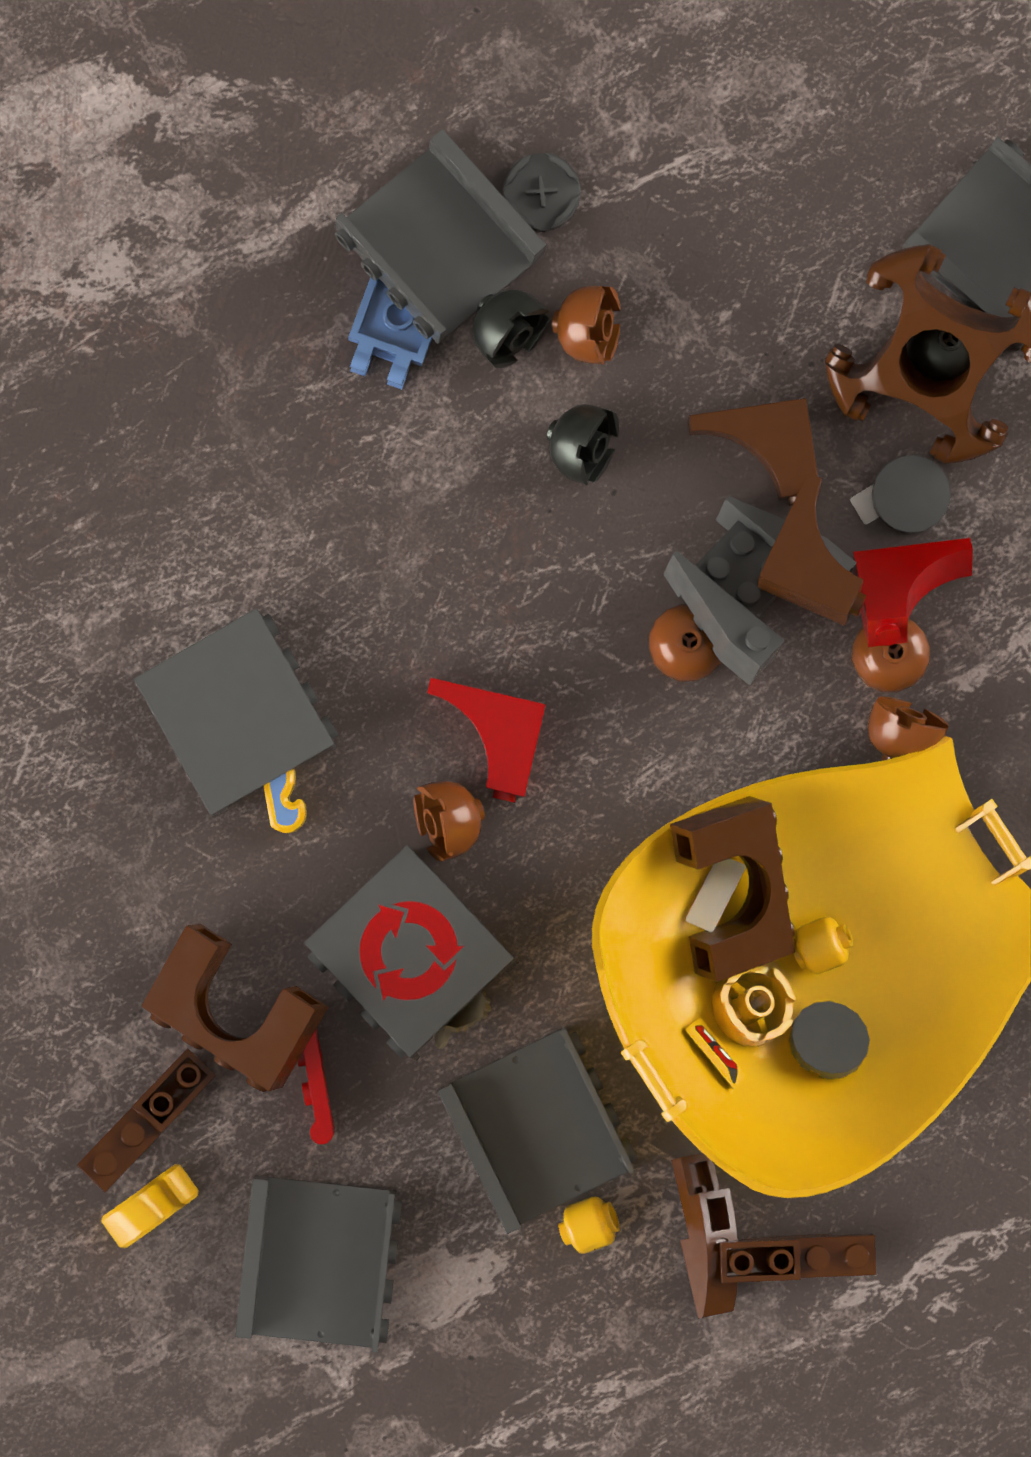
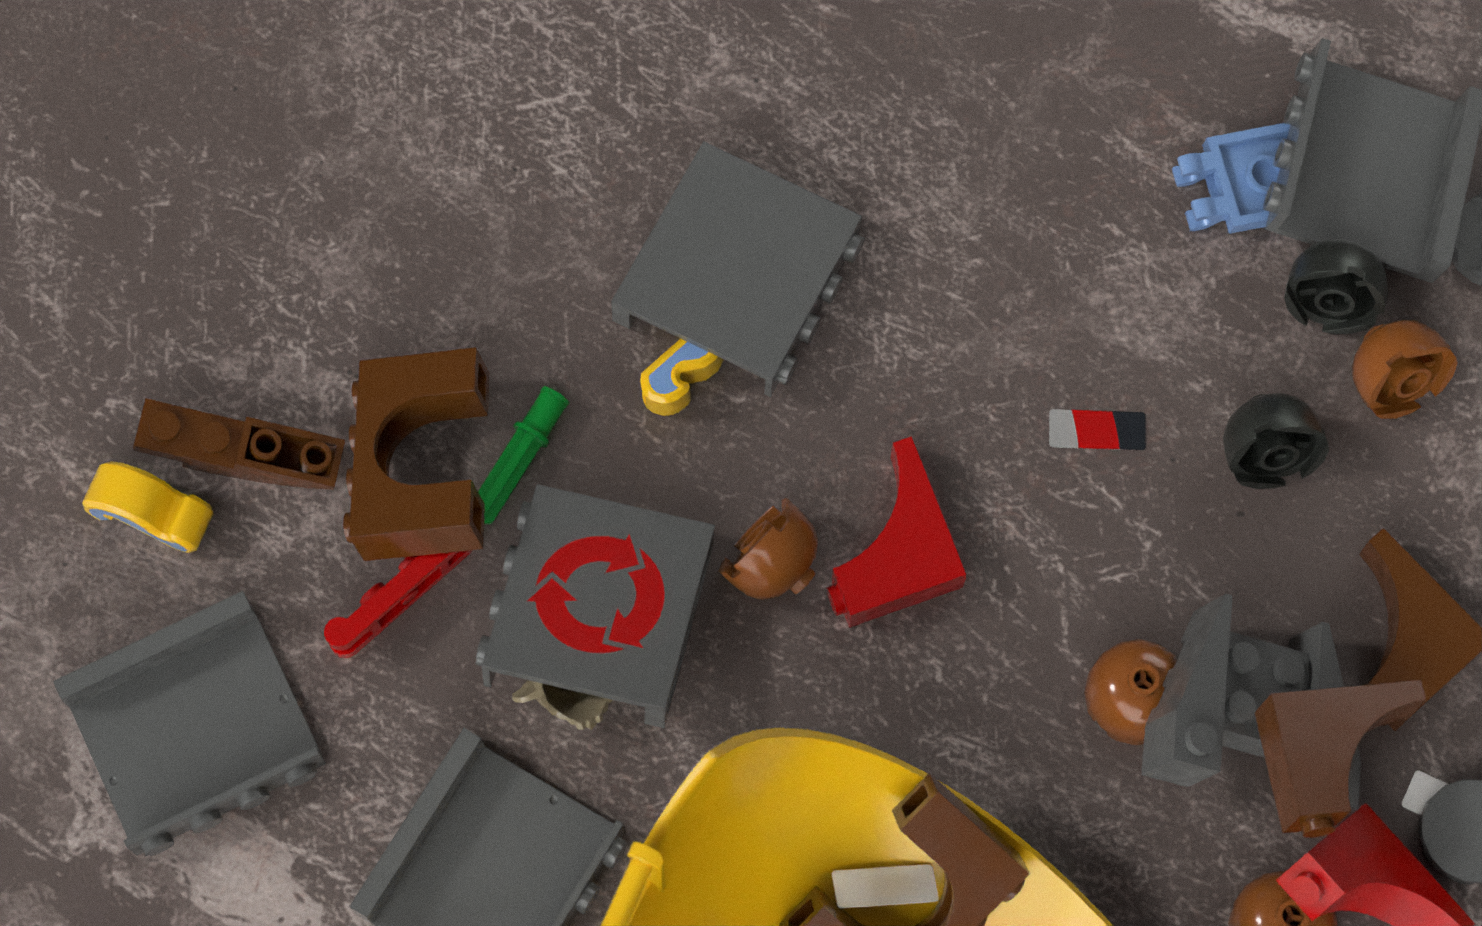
camera: 60 degrees right, 15 degrees down
(269, 937) = (520, 451): none -> green axle
(497, 546) = (1097, 429): none -> sticker

